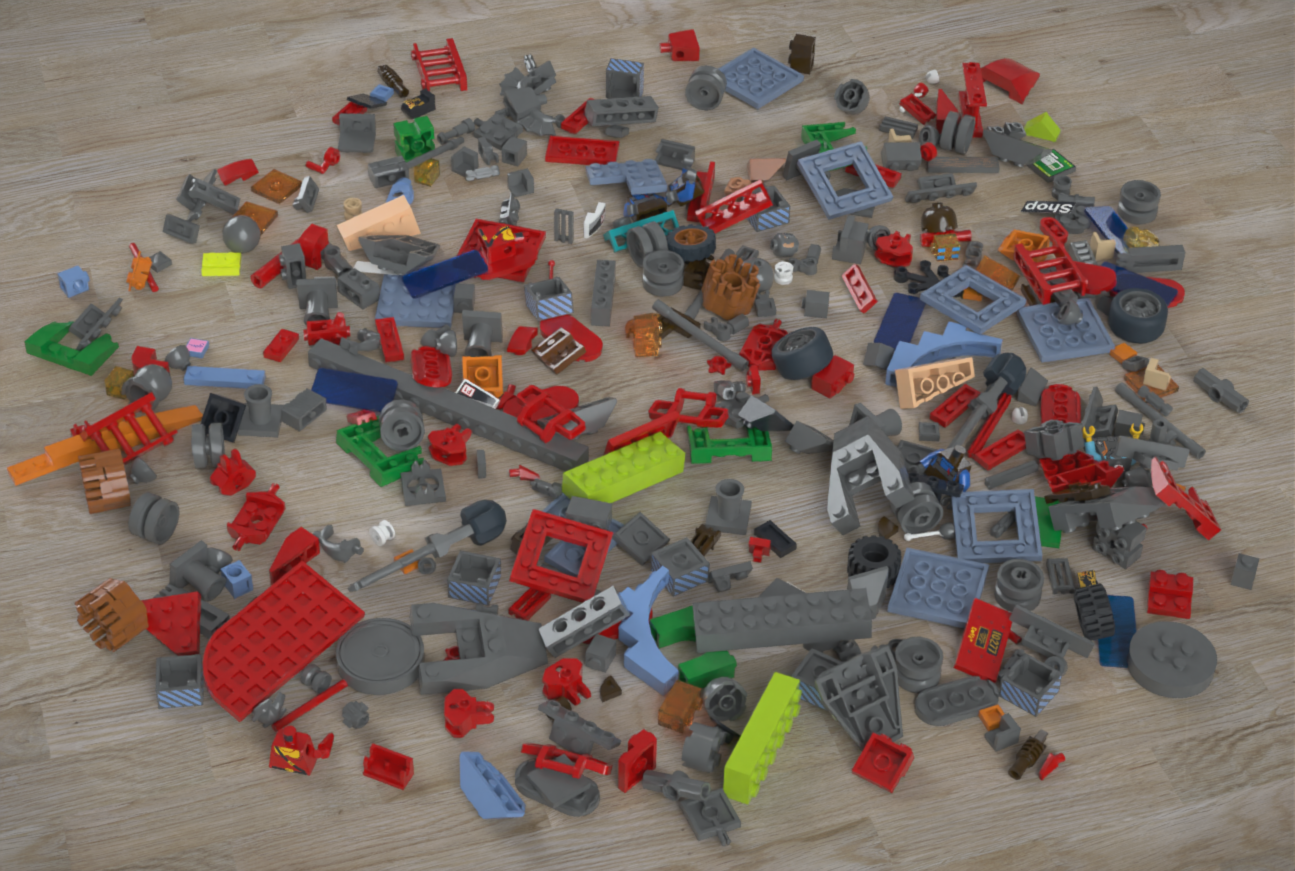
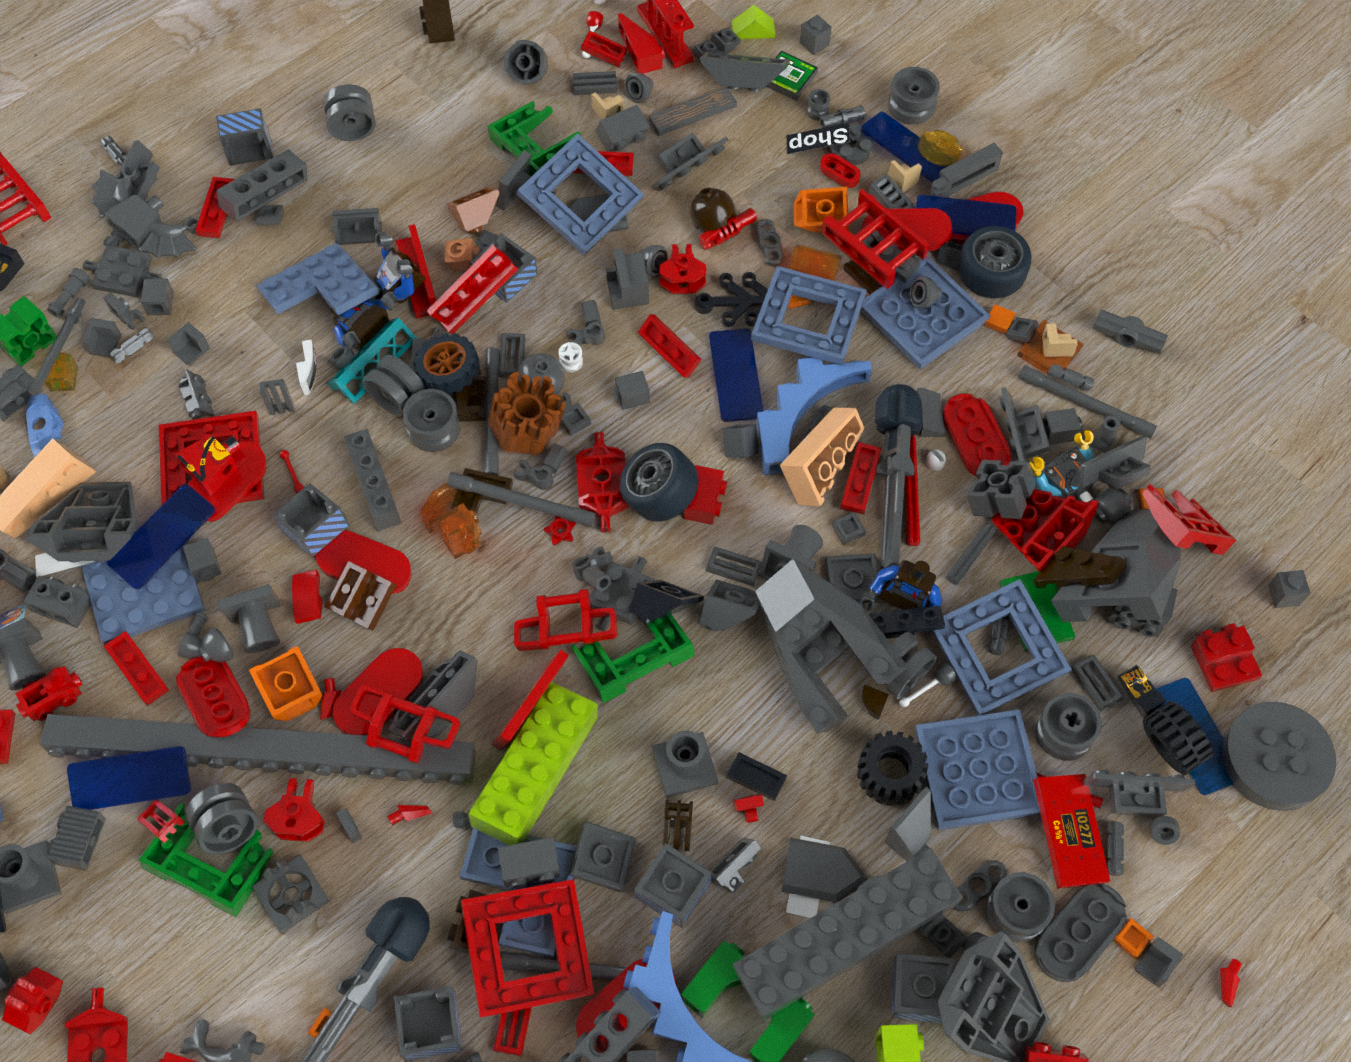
camera: 25 degrees left, 20 degrees up
(369, 341) = (115, 686): dark grey animal -> none
(382, 533) = (275, 1002): white wheel -> none
(426, 560) = (360, 1032): dark grey hinge -> none
(476, 393) = (293, 718): slope -> none
(546, 488) = (449, 829): dark grey axle -> none
(581, 150) = (240, 261): red tile -> none
(682, 46) = (287, 55): red torso -> none
(753, 380) = (616, 541): red plate -> none
(758, 78) = (399, 70): sand blue plate -> none
(784, 245) = (552, 314): dark grey head -> none
(827, 425) = (749, 580): none -> dark grey tile
(928, 151) = (651, 110): red plate -> none
(945, 247) = (735, 243): clear yellow brick -> none
(957, 132) = (671, 71): dark grey wheel -> none
(1001, 450) = (944, 522): red plate -> none
(1028, 754) = (1201, 978): dark brown hinge -> none
(1030, 684) = (1154, 873): dark grey container -> none
(1085, 146) = (815, 34): none -> dark grey brick

